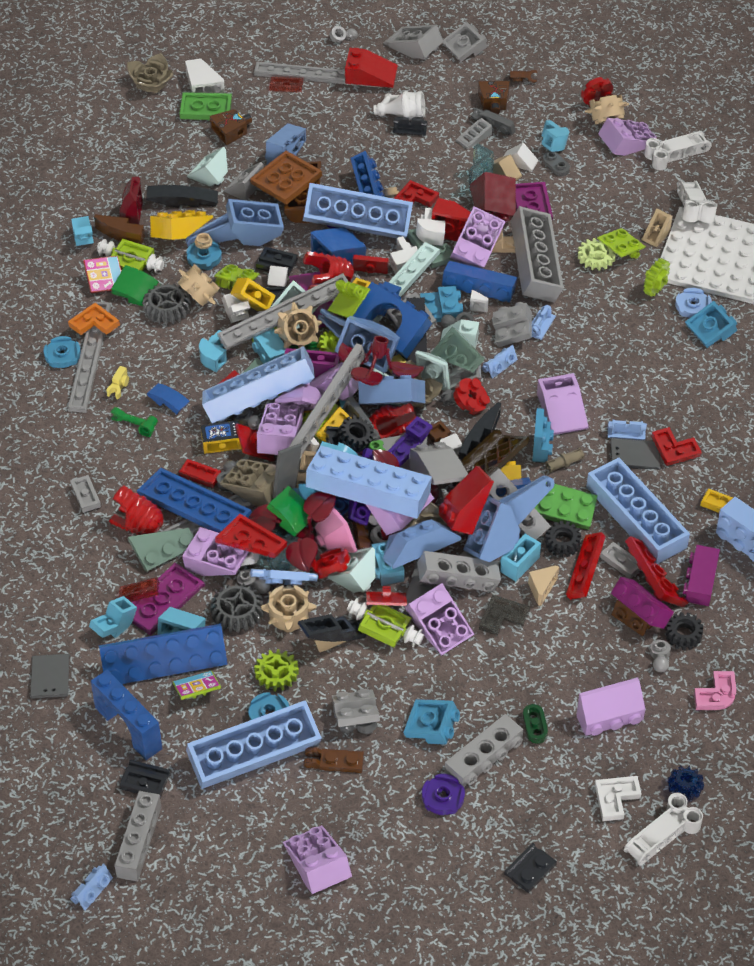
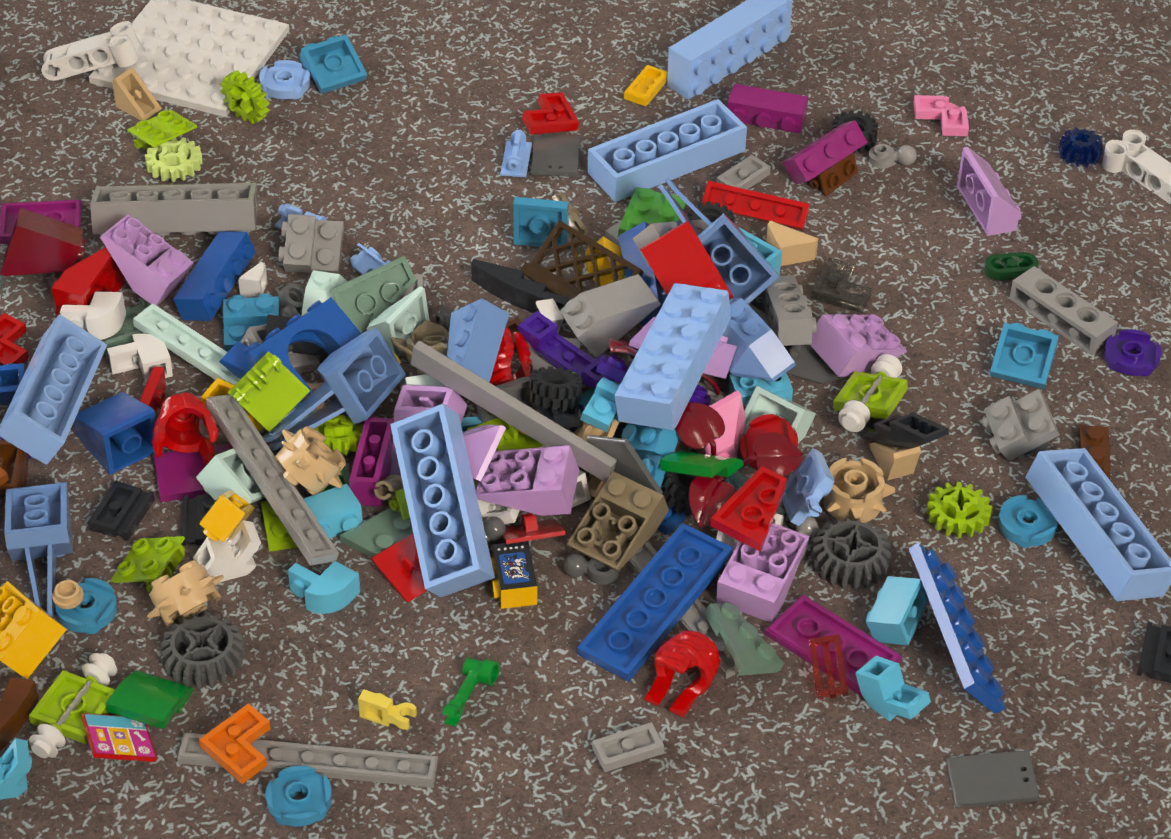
camera: 90 degrees left, 5 degrees down
(114, 699) = (1098, 638): blue arch -> none
(171, 398) = (420, 644): blue slope -> none
(196, 685) = (998, 595): piece -> none
(199, 473) = (585, 602): red plate -> none
(277, 276) = (161, 507): white slope -> none
(378, 350) = (428, 330): dark red plant -> none
(386, 597) = (829, 389): red piece -> none
(479, 398) = (450, 292): red plate -> none
(562, 403) = (469, 207): lavender slope -> none
(612, 792) = (1107, 210): white plate -> none
(654, 573) = (762, 145): red wing -> none

